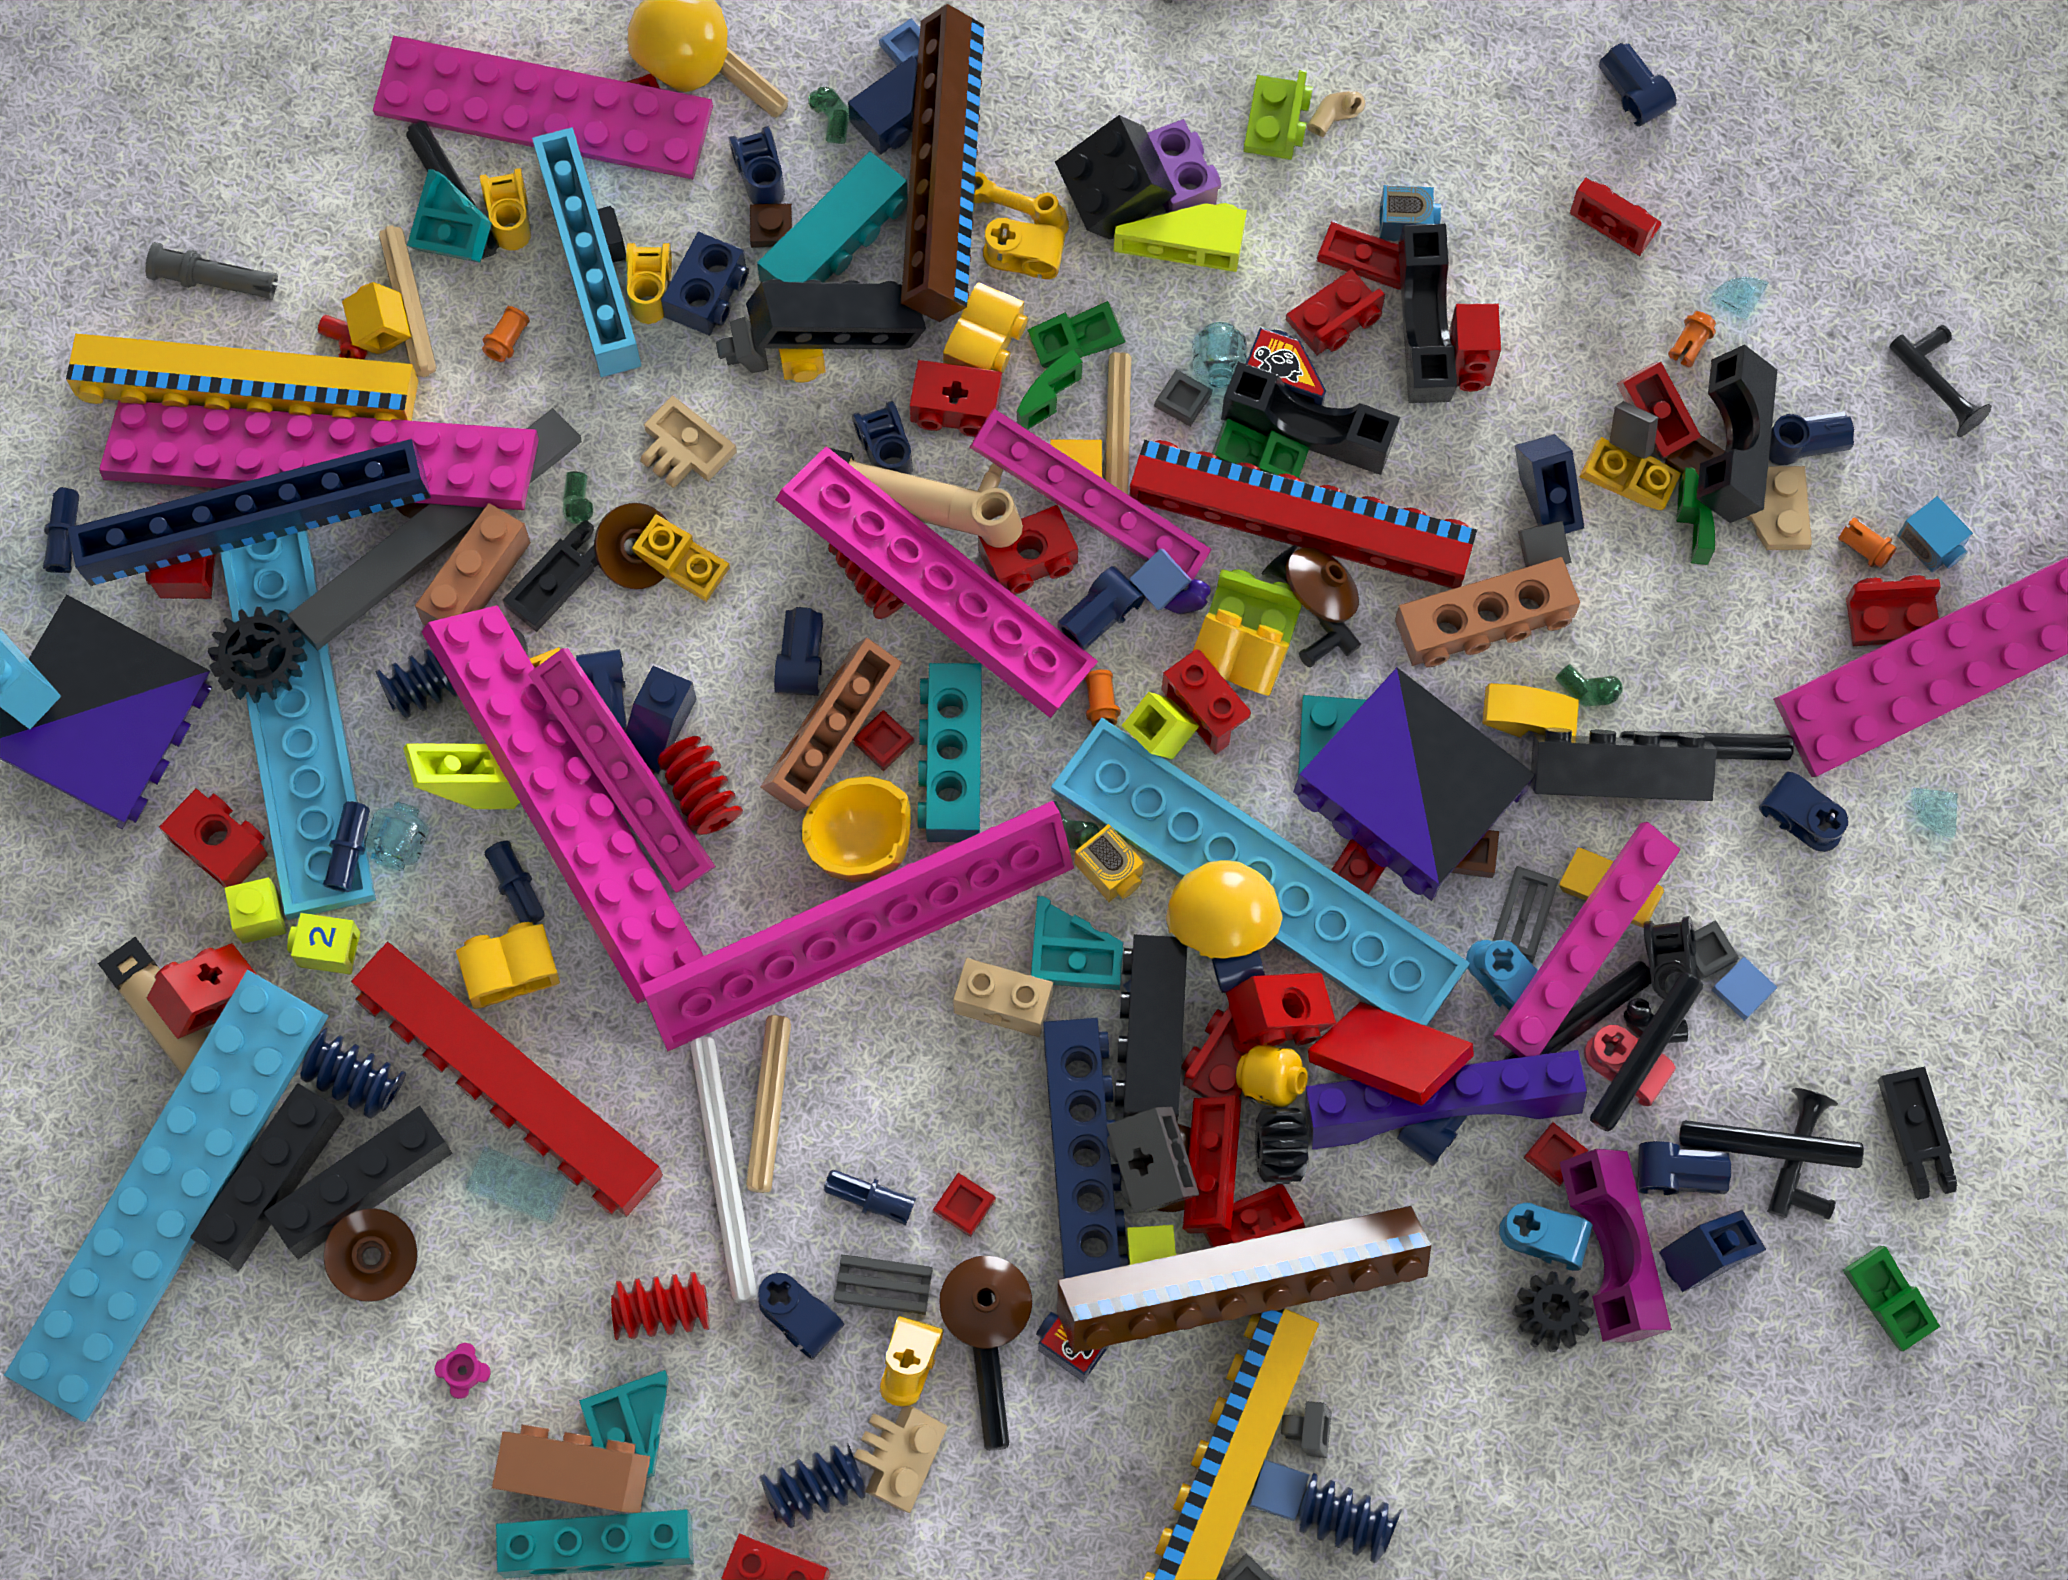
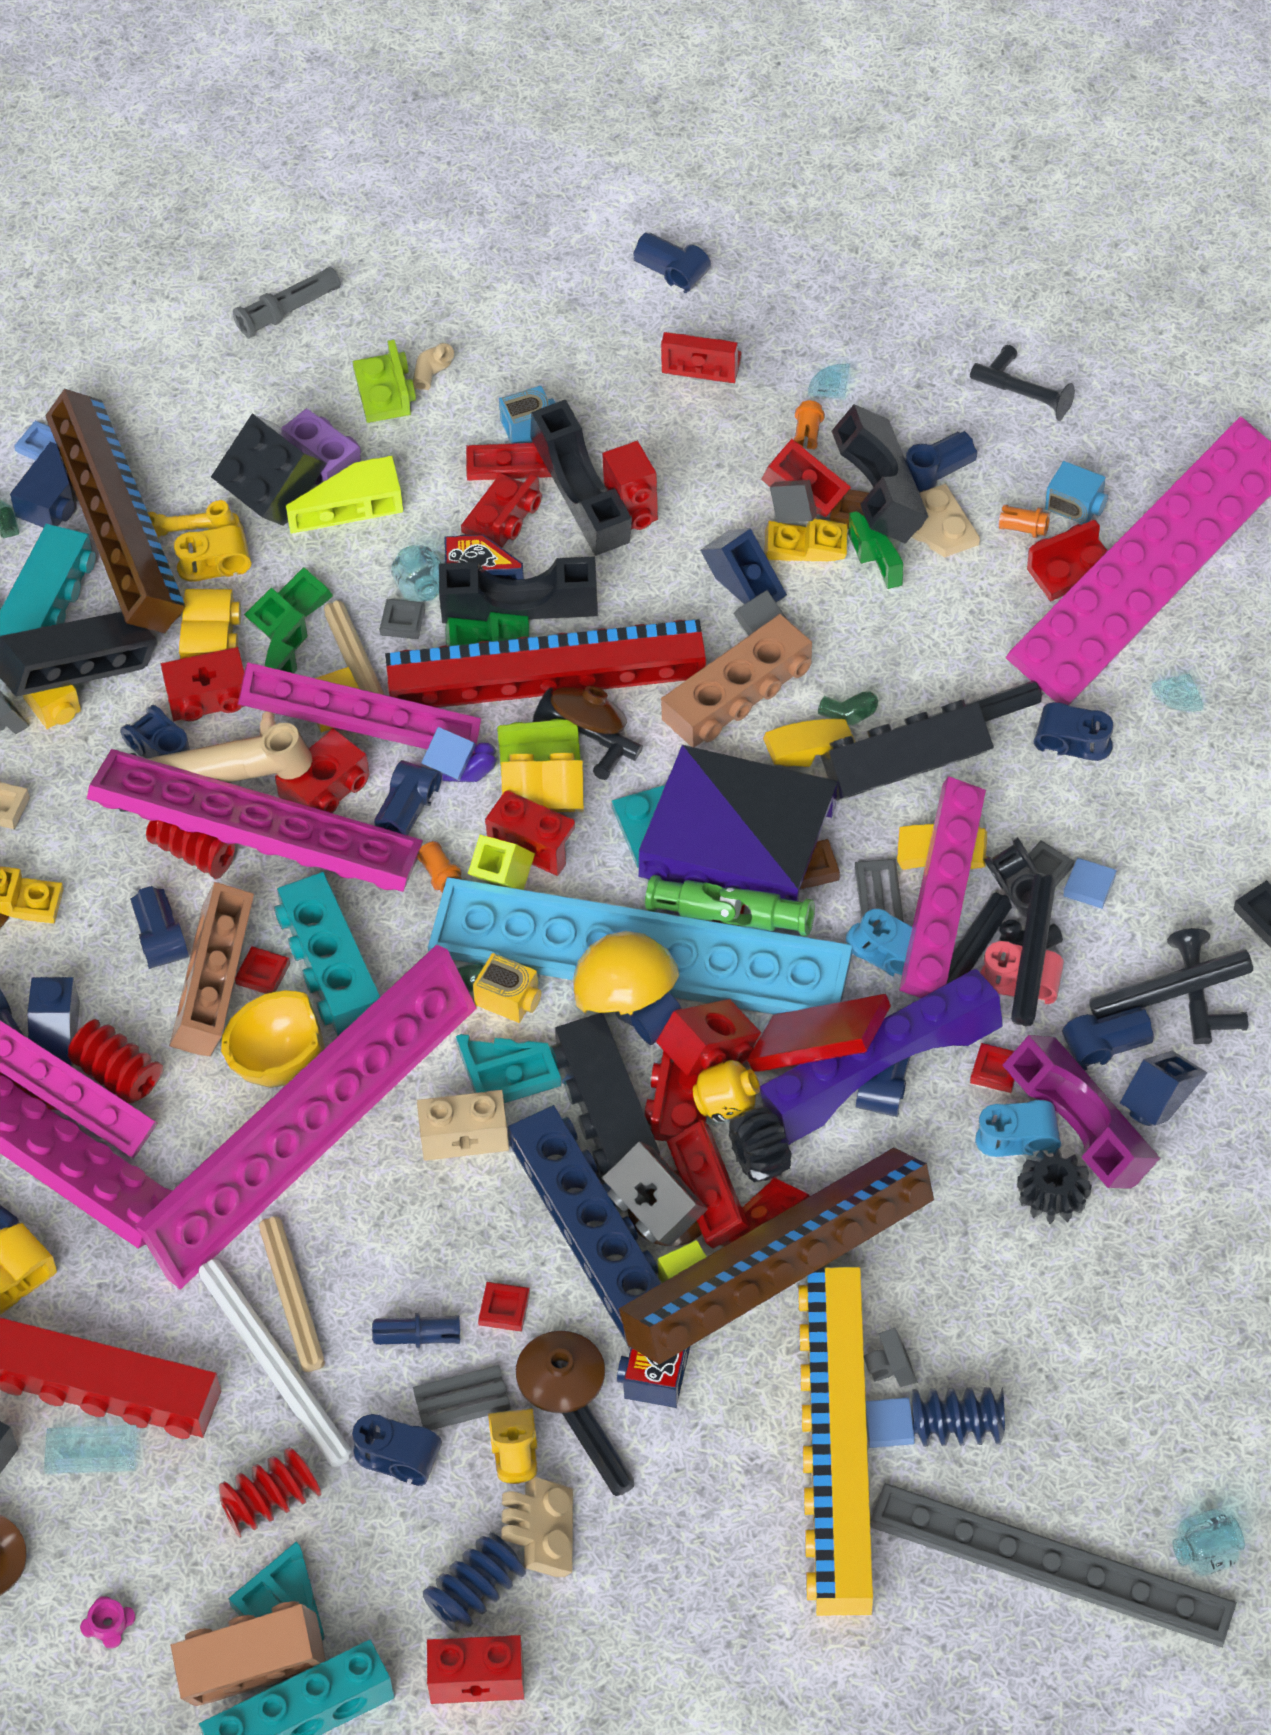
camera: 20 degrees left, 15 degrees down
(1340, 850) = (712, 902): none -> bright green piece

